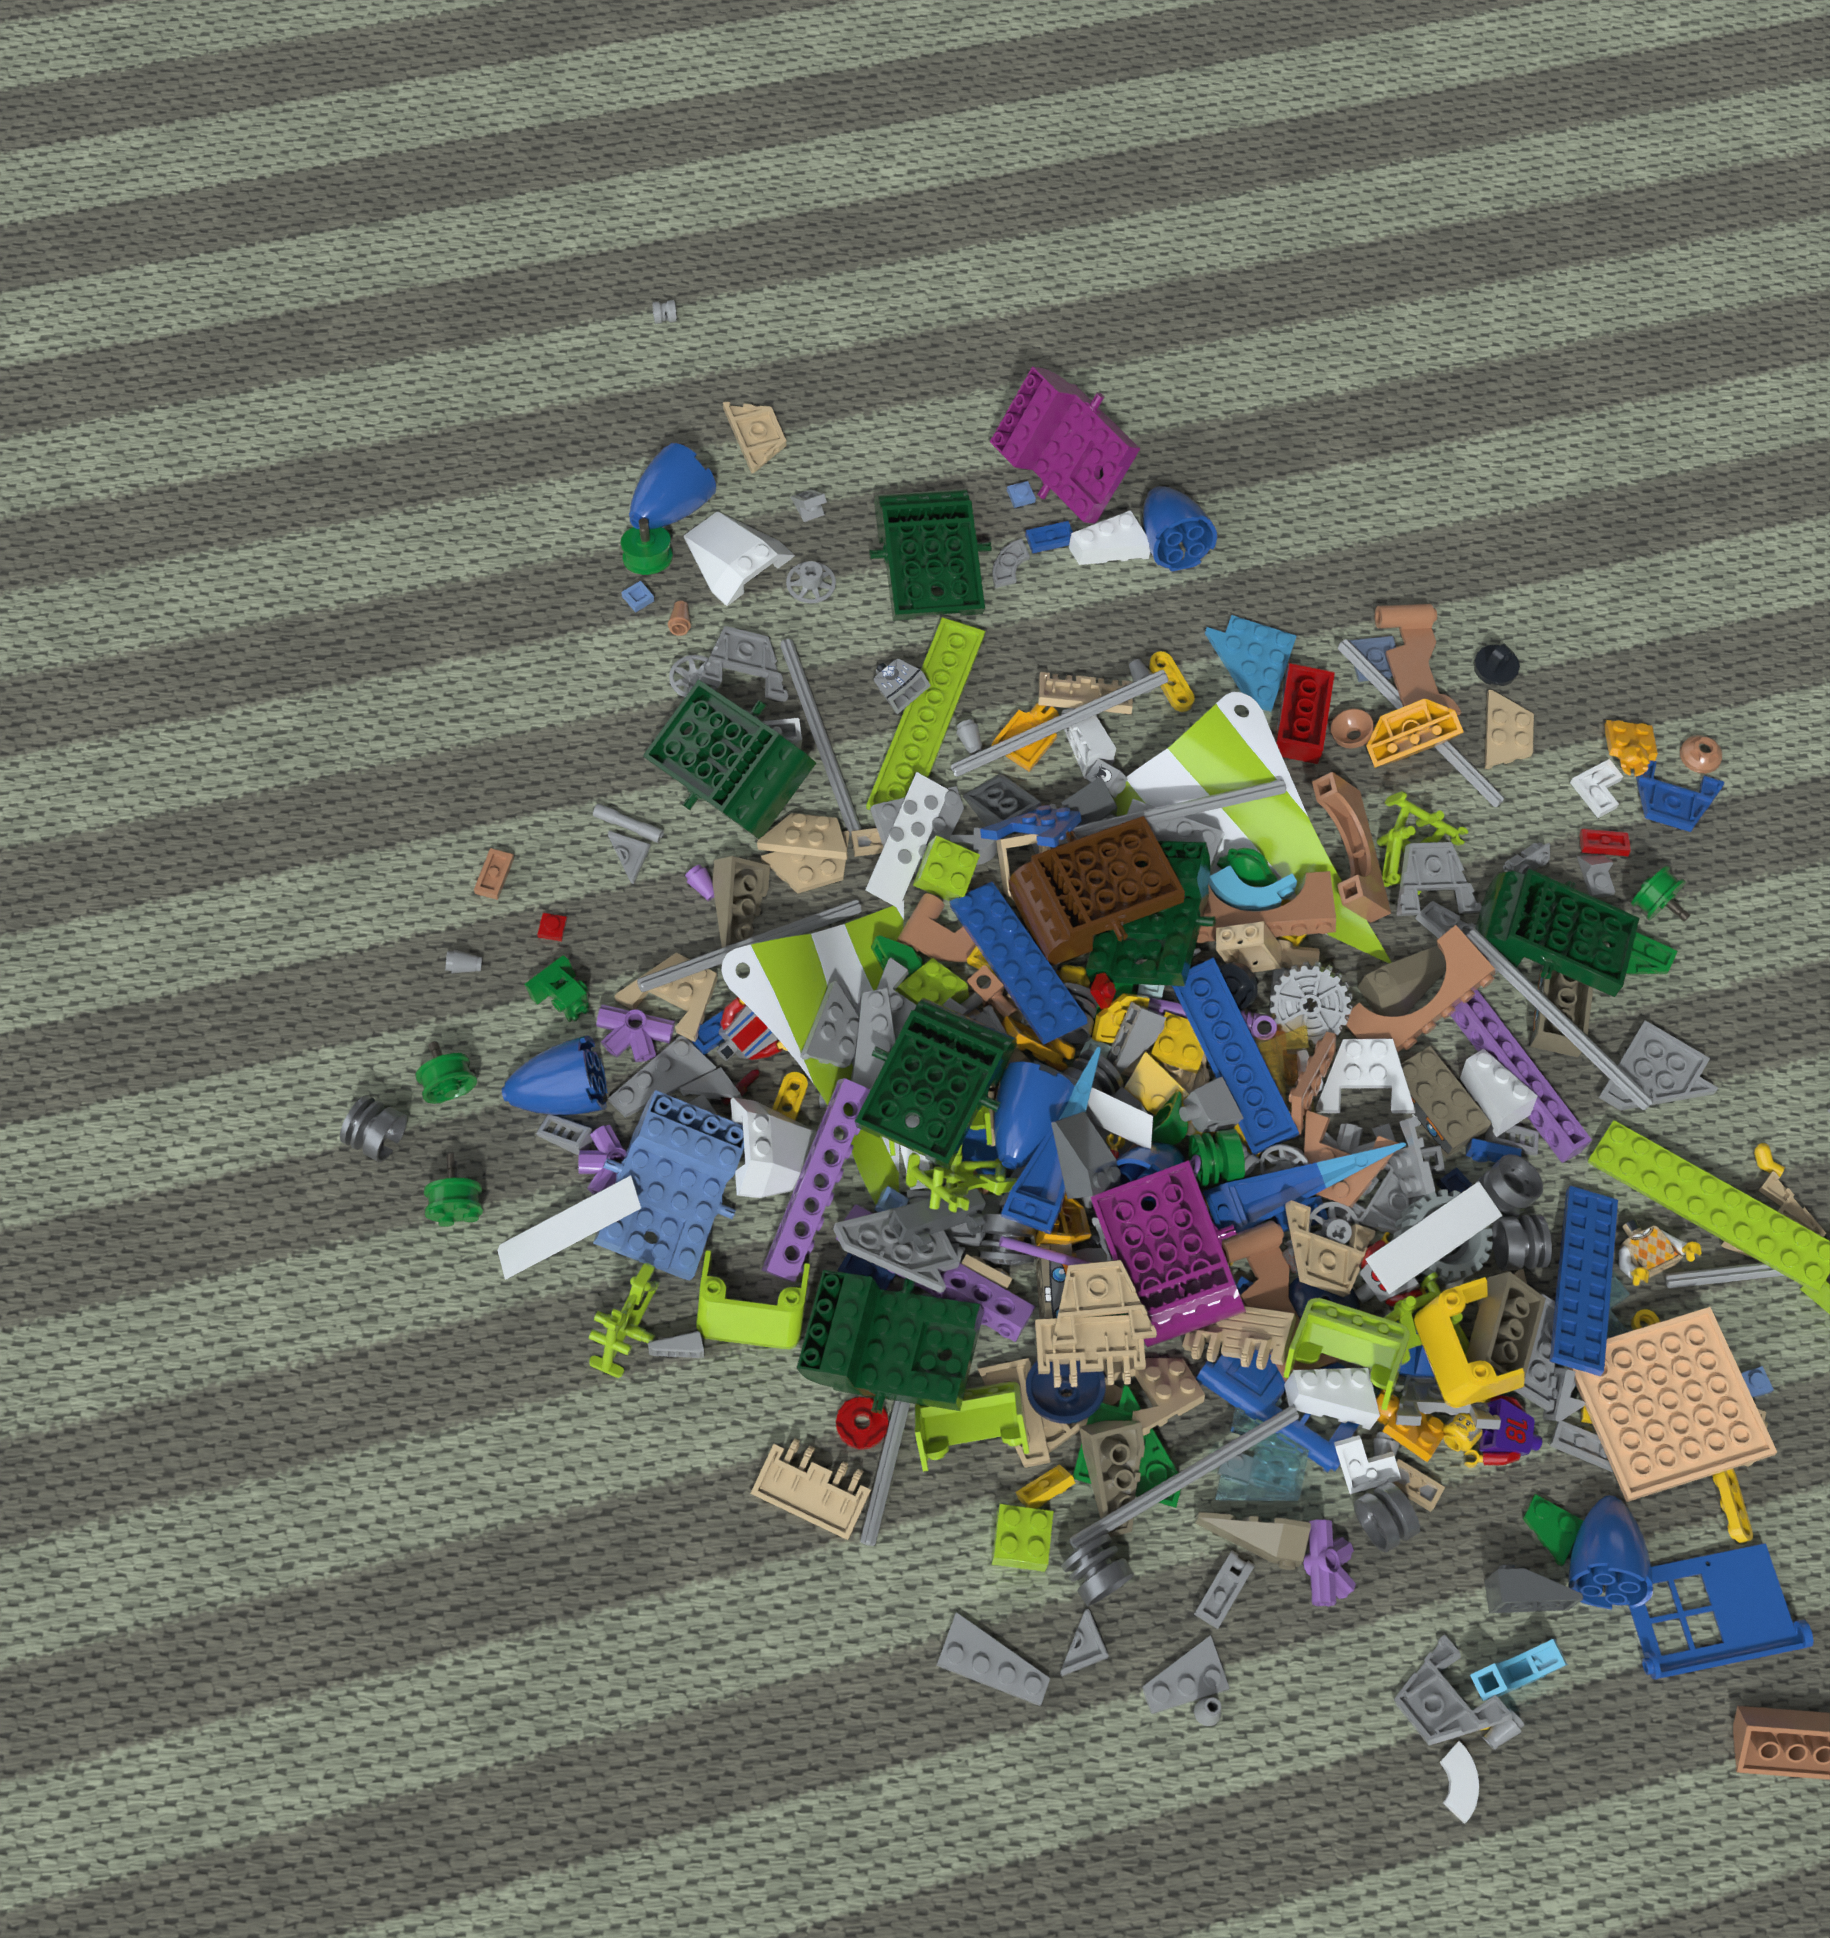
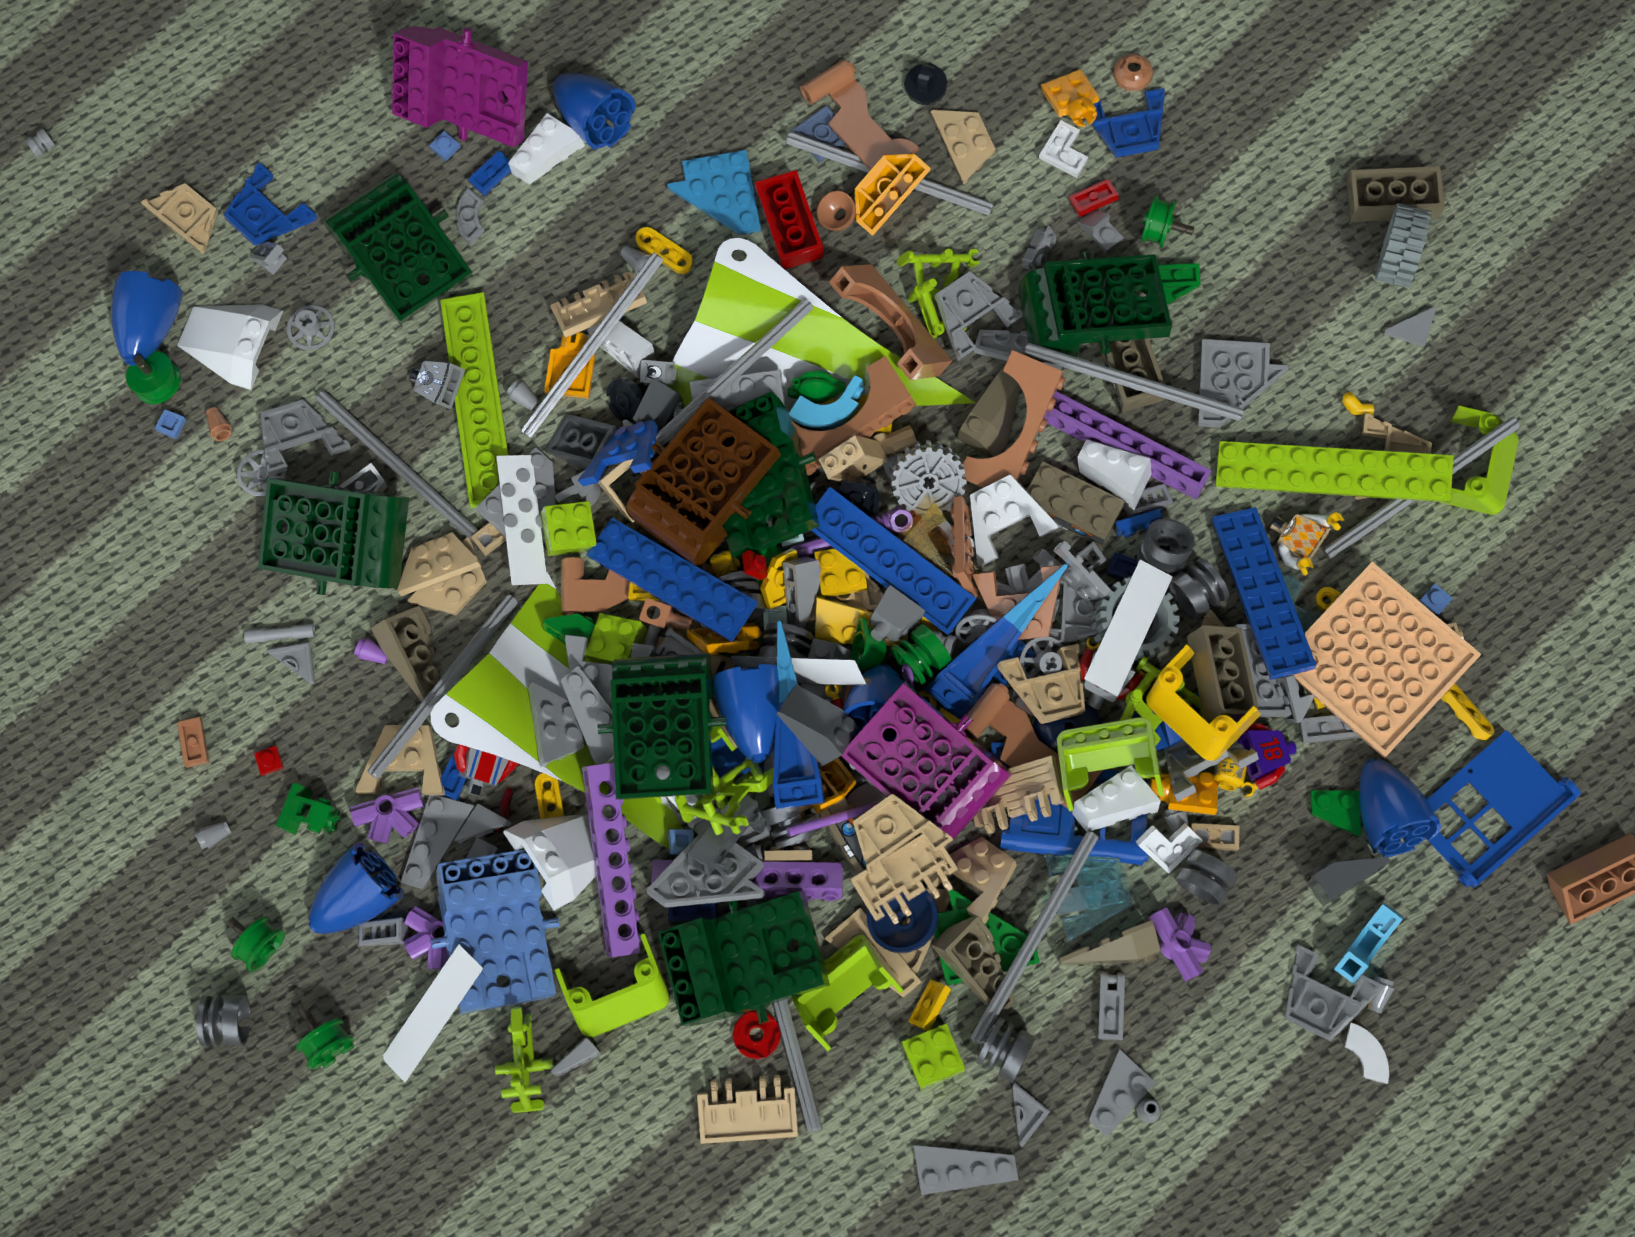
camera: 15 degrees left, 10 degrees up
(819, 468) = (257, 217): none -> blue wing
(1063, 783) = (625, 397): none -> black tile

